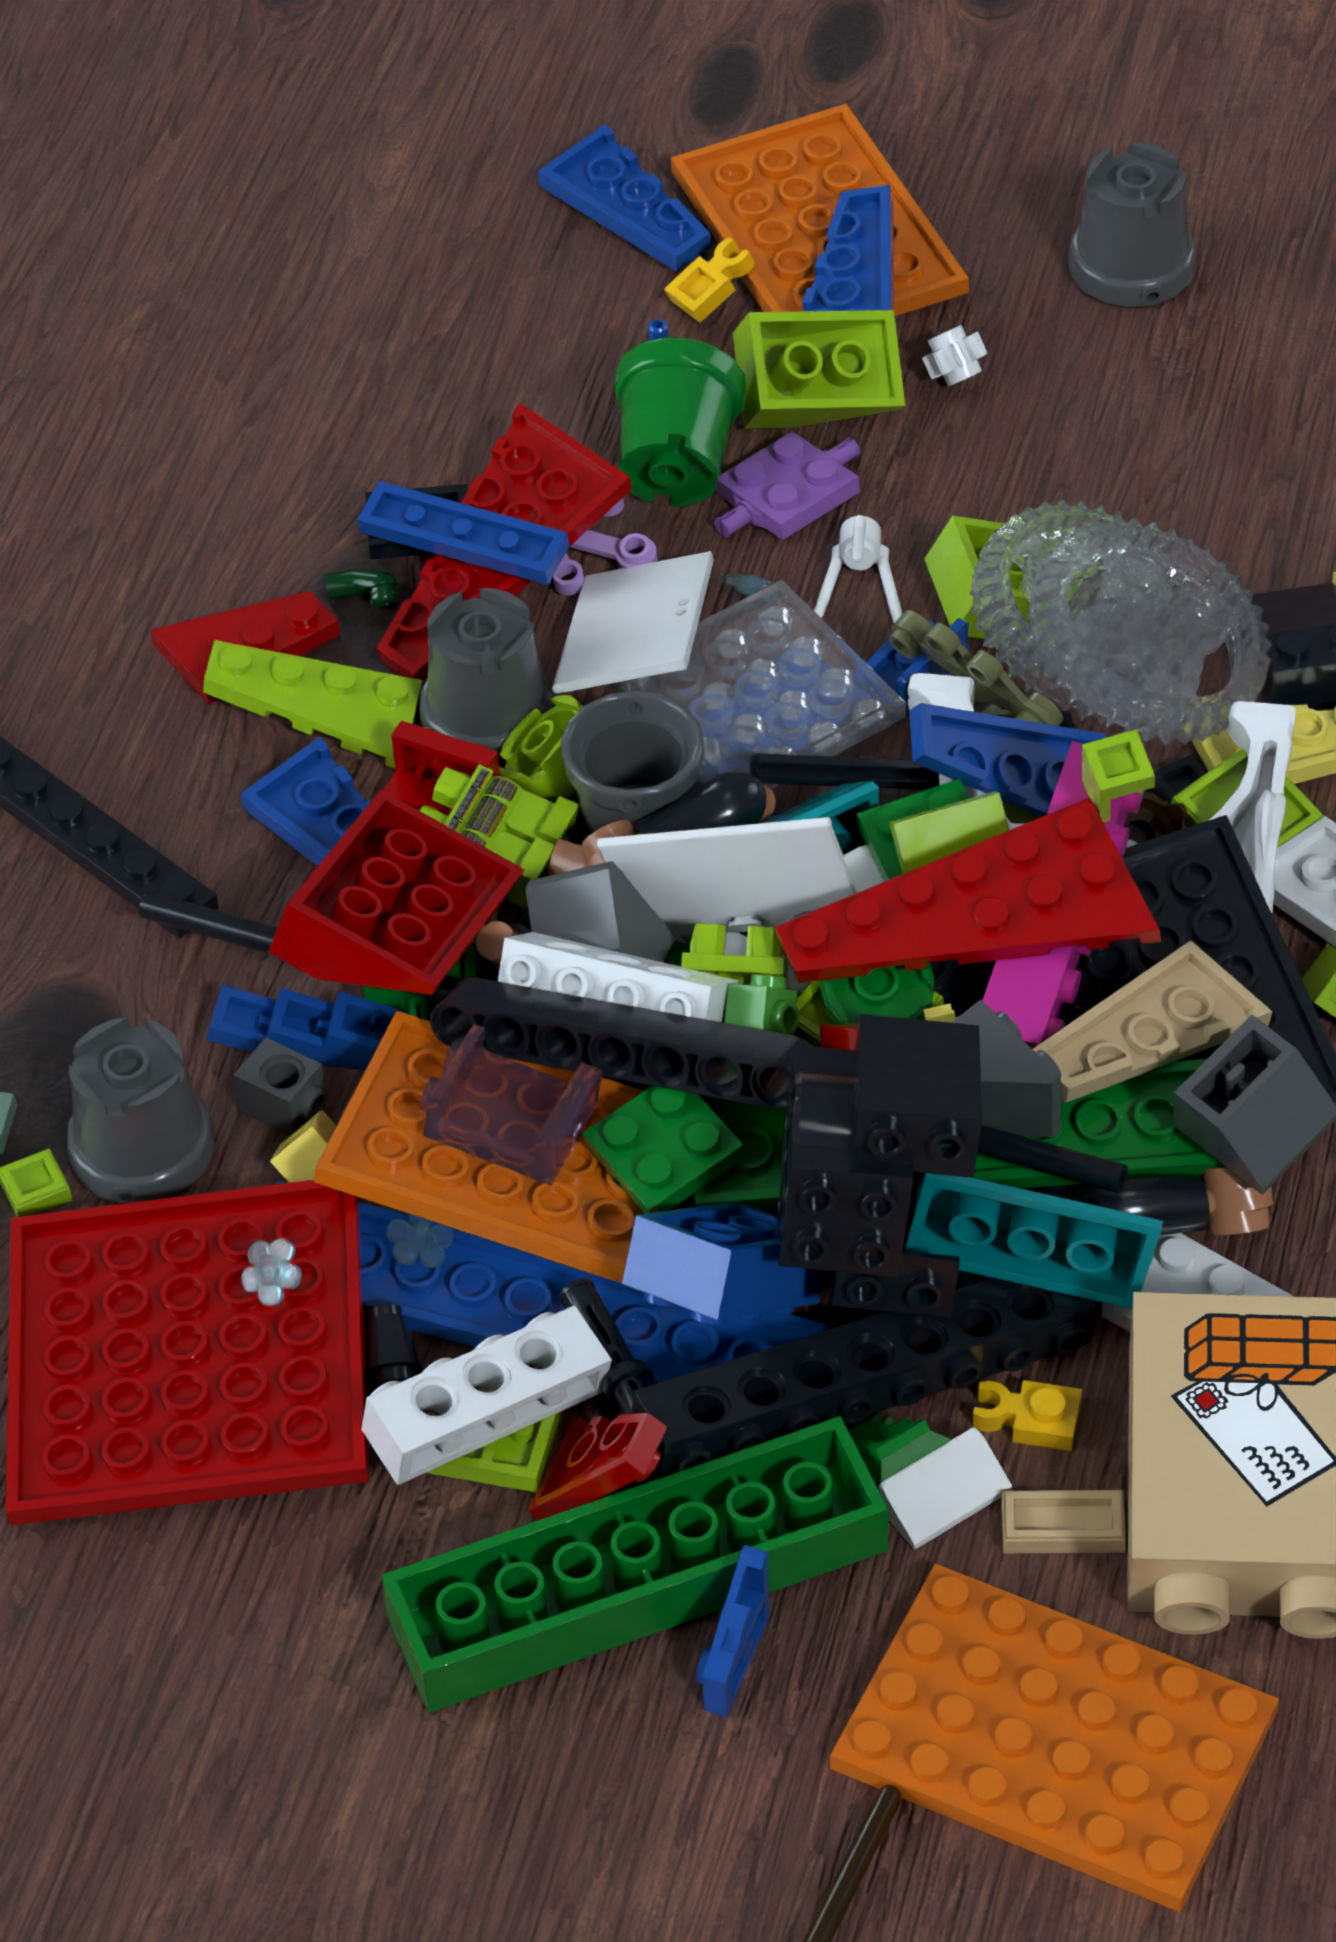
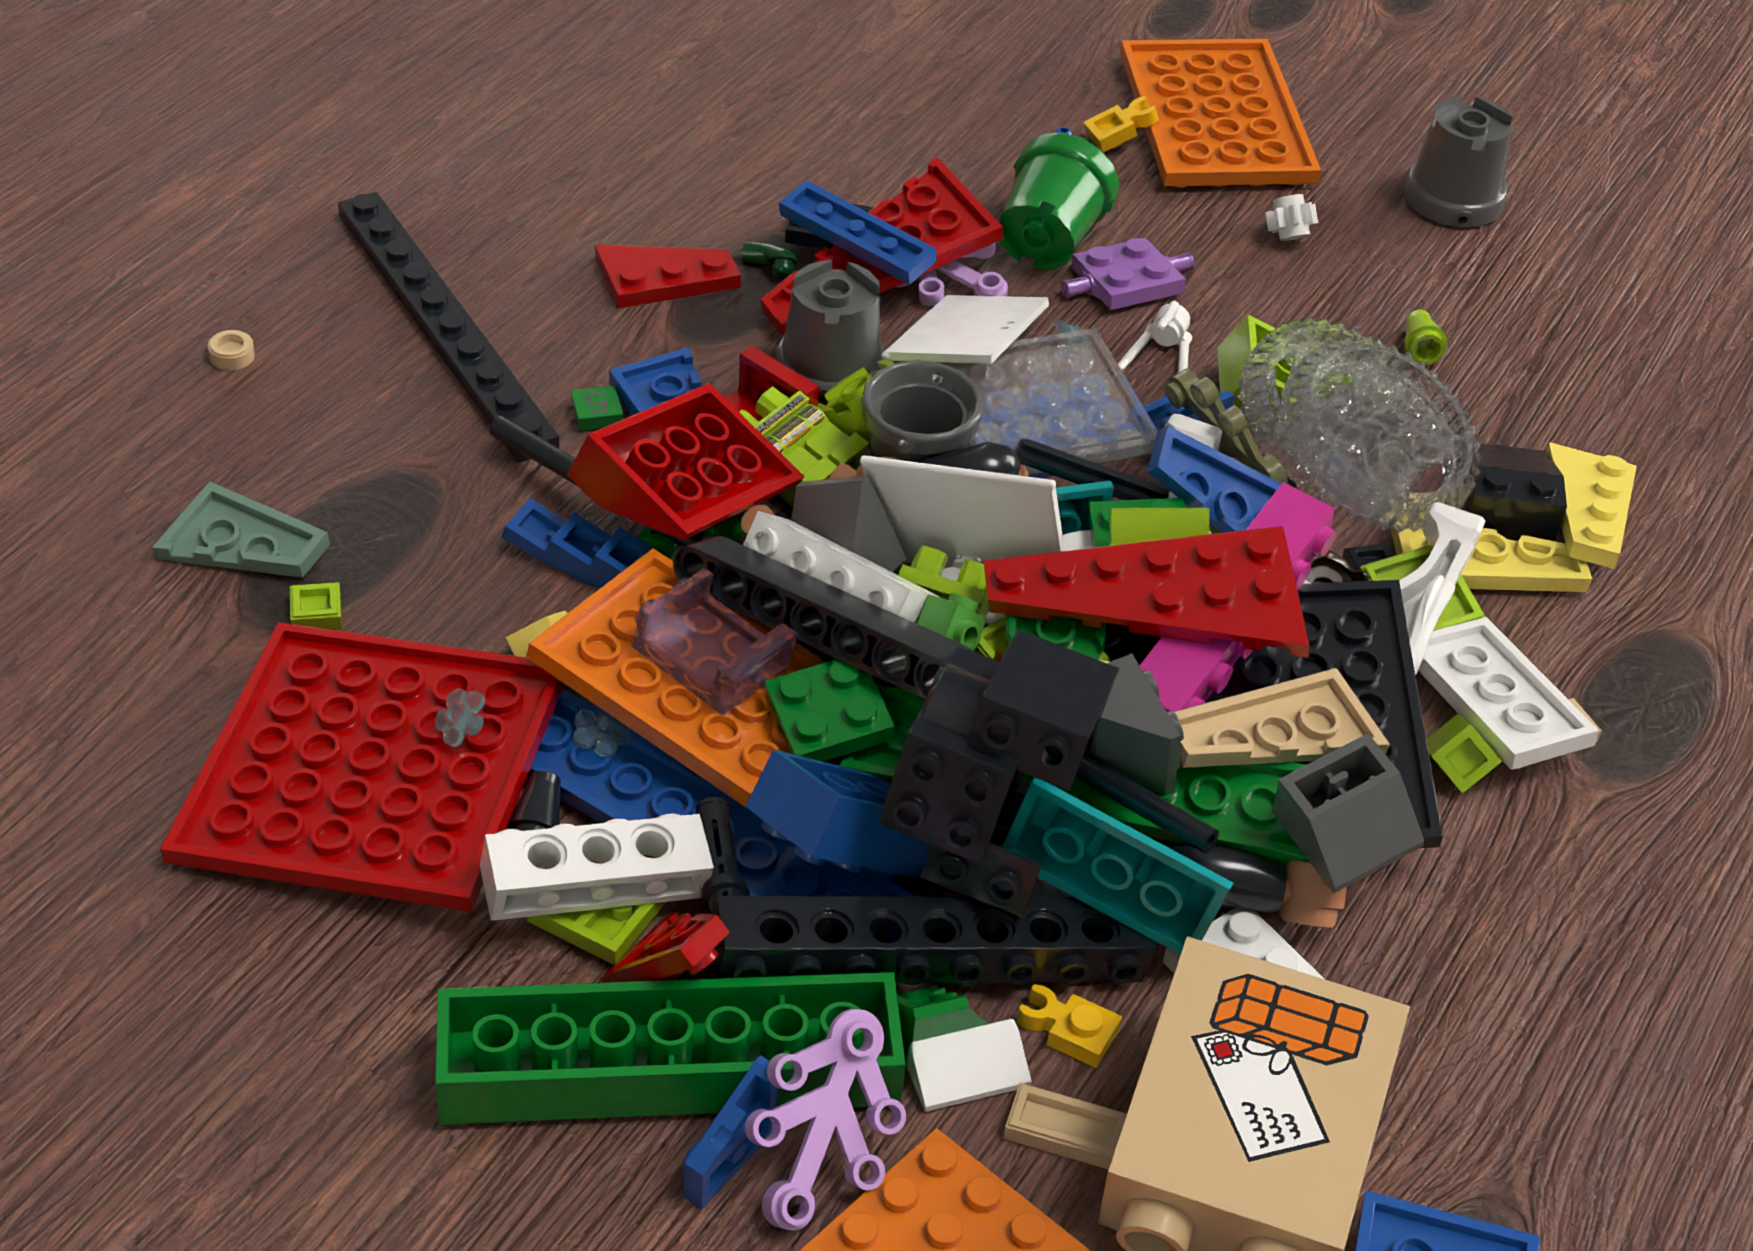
camera: 10 degrees right, 5 degrees down
(135, 1114) = (413, 569): dark grey piece -> none
(242, 844) = (596, 407): none -> green tile
(280, 1087) = (541, 584): dark grey brick -> none
(314, 694) = (696, 316): lime wing -> none
(617, 193) = (1076, 59): blue wing -> none
(818, 366) = (1179, 195): lime slope -> none
(828, 1581) = (829, 1111): none -> lavender plant
(859, 255) = (1232, 144): blue wing -> none
(1115, 769) = (1311, 505): lime panel -> none
(1155, 476) = (1424, 338): none -> lime cone

